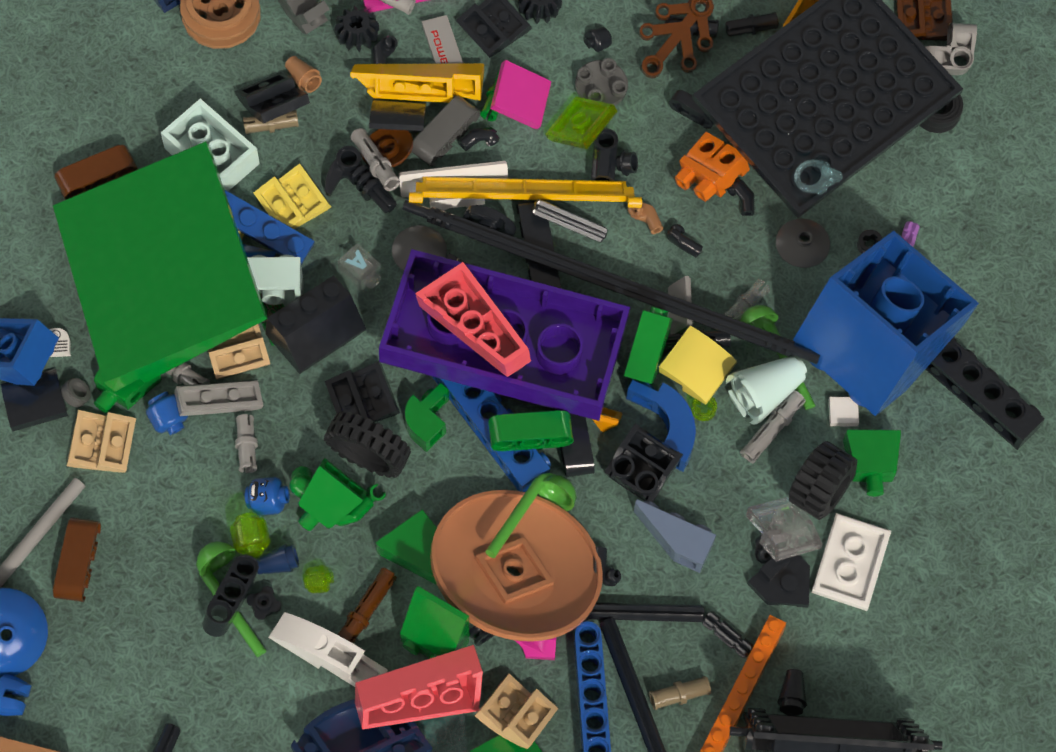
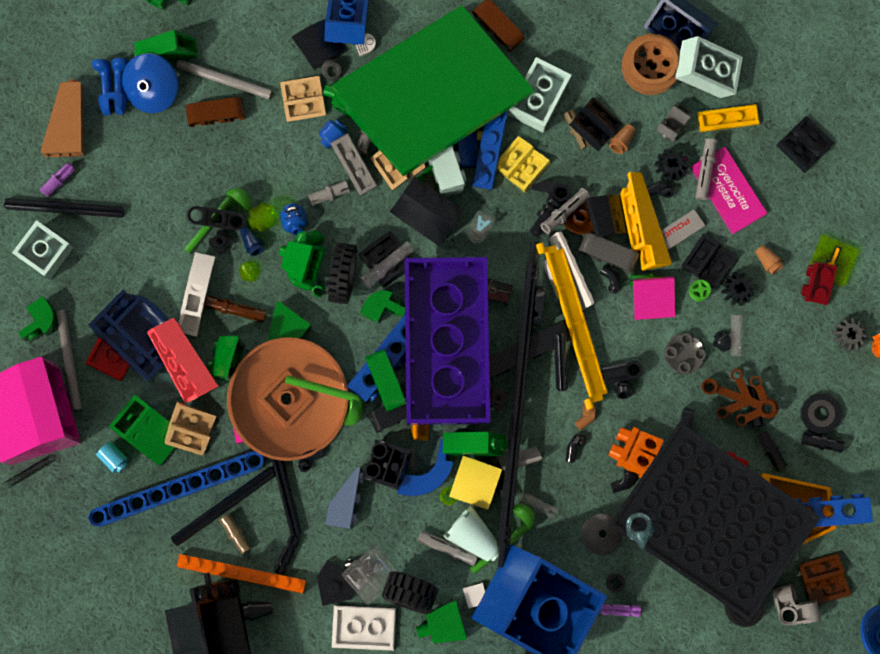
camera: 75 degrees right, 15 degrees up
(376, 405) = (378, 270): none -> clear pin
(420, 239) = (508, 263): dark grey dish -> none
(473, 317) = (440, 316): coral wedge -> none
(523, 39) = (702, 288): none -> bright green wheel
(581, 122) = (644, 348): clear neon green tile -> none
(596, 20) = (736, 335): none -> clear pin

